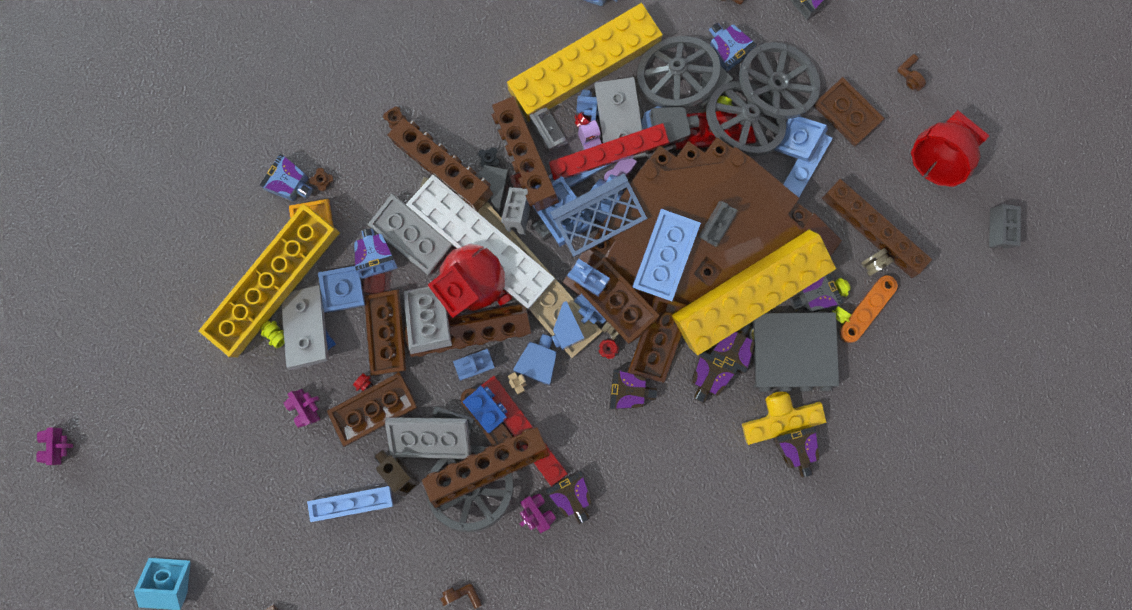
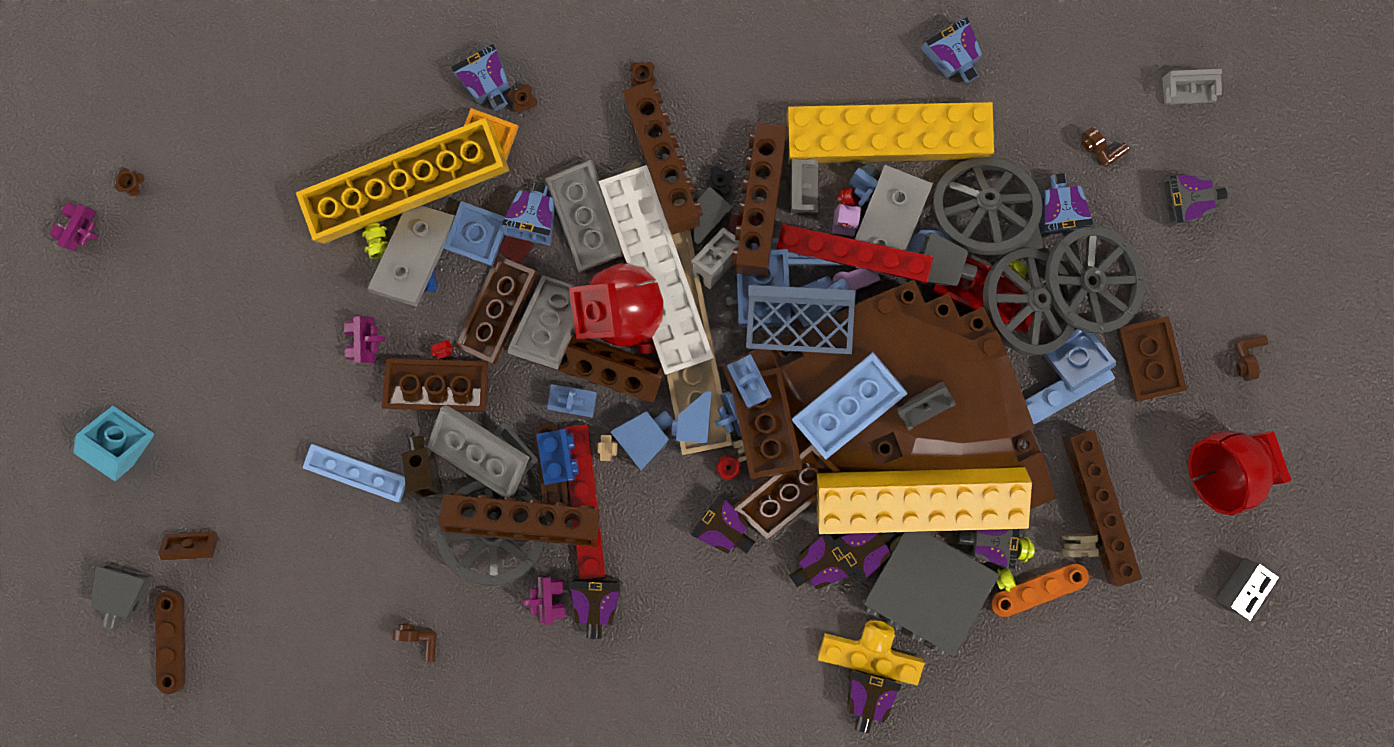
camera: 30 degrees right, 5 degrees up
(70, 398) = (122, 182): none -> reddish brown plate

